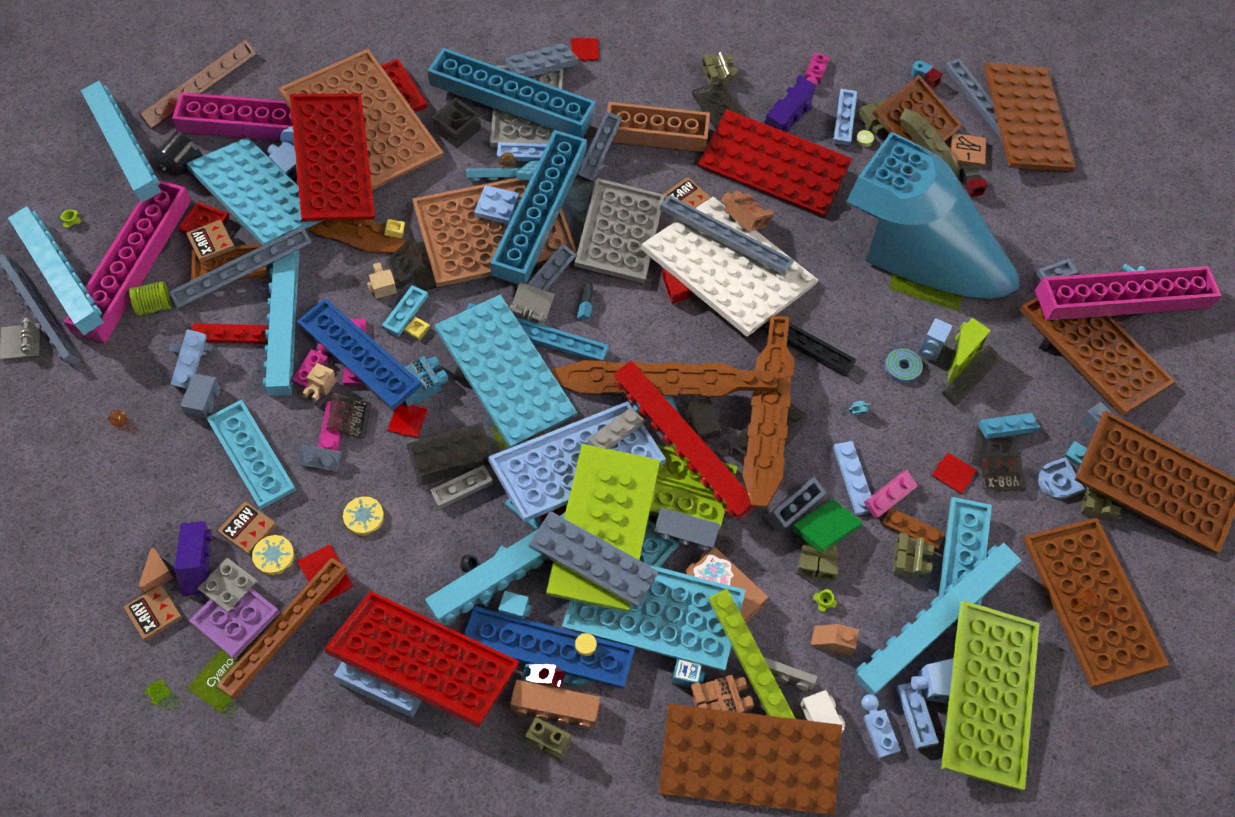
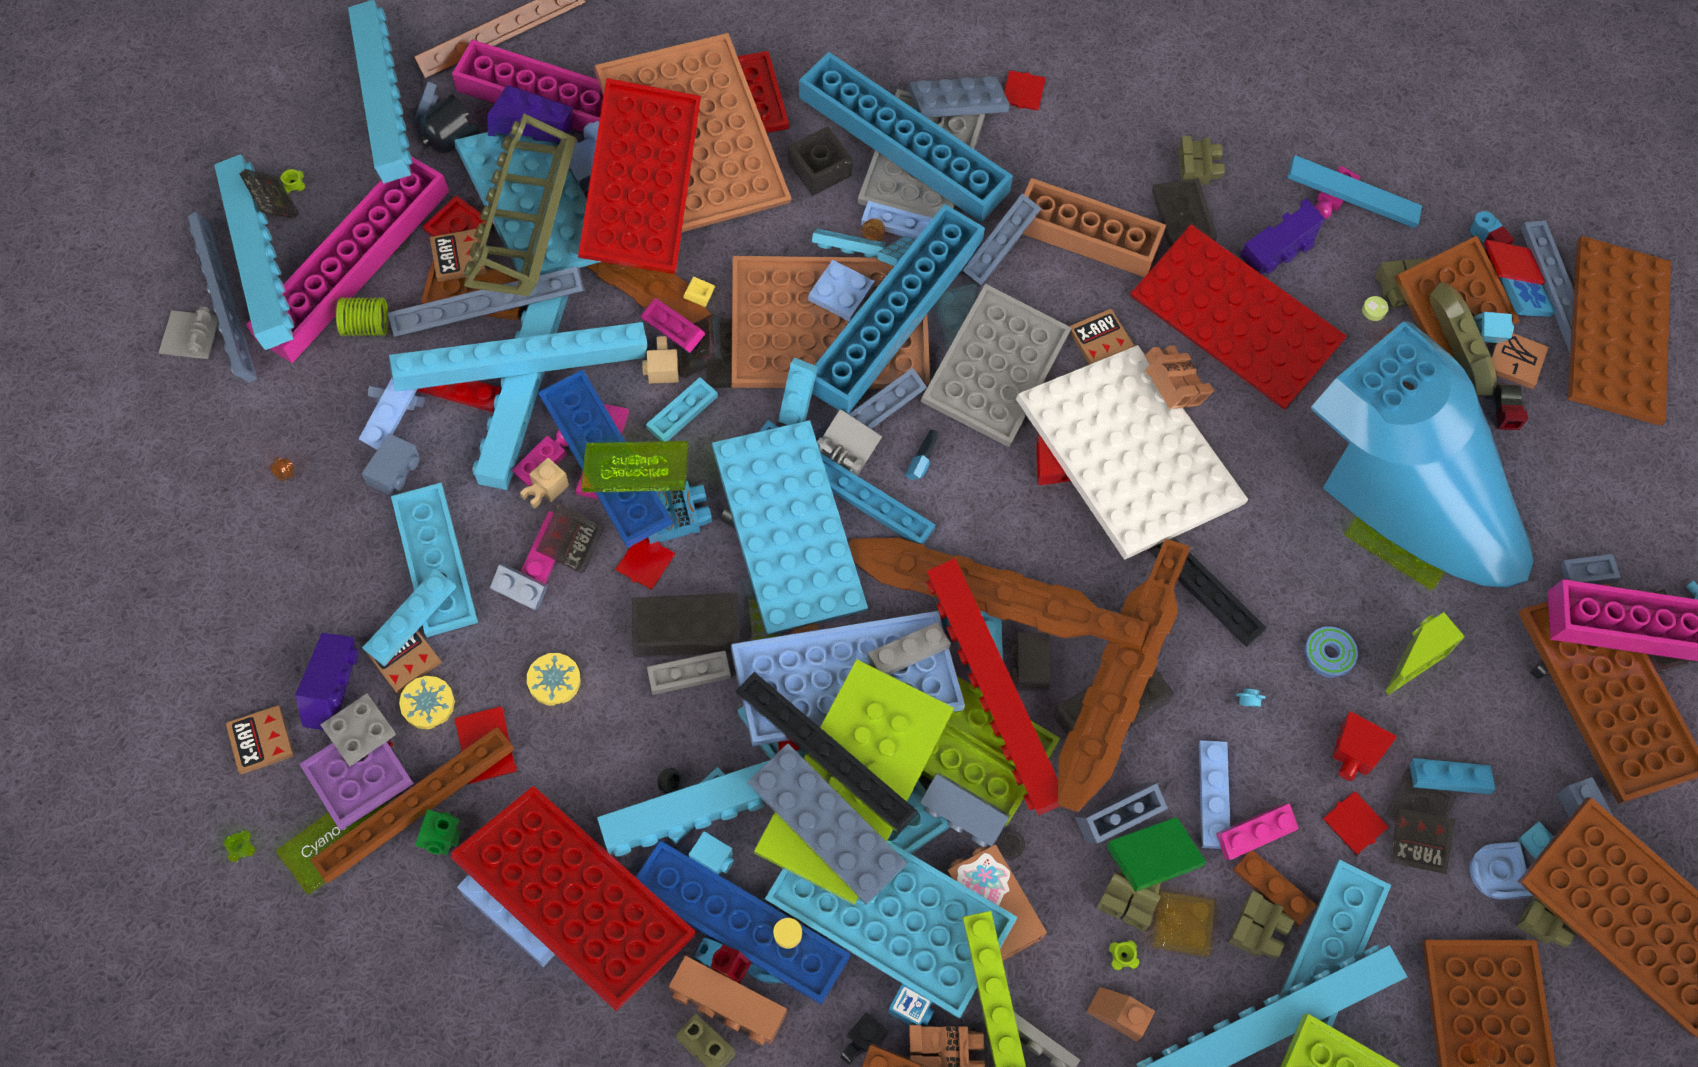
camera: 15 degrees right, 5 degrees up
(56, 229) = (269, 194): none -> clear smoke tile
(154, 573) = (274, 688): nougat slope -> none
(158, 140) = (426, 102): none -> sand blue plate
(238, 134) = (516, 102): none -> dark purple wedge
(244, 498) = (409, 617): none -> medium azure plate
(269, 202) = (543, 221): none -> olive window
(274, 298) = (517, 356): none -> medium azure brick
(308, 642) = (438, 832): none -> green brick
(382, 253) = (672, 325): none -> dark pink plate
(383, 352) = (635, 466): none -> clear neon green tile
(417, 328) = (694, 435): light yellow tile -> none
(486, 276) = (797, 392): none -> medium azure plate
(579, 511) = (827, 753): none -> black tile
(659, 704) = (864, 1033): none -> black plate
(726, 235) = (1138, 408): sand blue plate -> none
(828, 66) = (1354, 191): none -> dark azure tile
(845, 117) = (1355, 271): light blue plate -> none
(859, 569) = (1183, 924): none -> clear yellow hinge
(935, 339) = (1384, 628): light blue piece -> none
(942, 420) = (1360, 745): none -> red torso
(947, 88) = (1514, 262): none -> red piece
(948, 130) = (1494, 326): none -> medium azure brick
(961, 107) = (1527, 298): none -> dark azure tile
(971, 375) = (1421, 690): clear smoke plate -> none

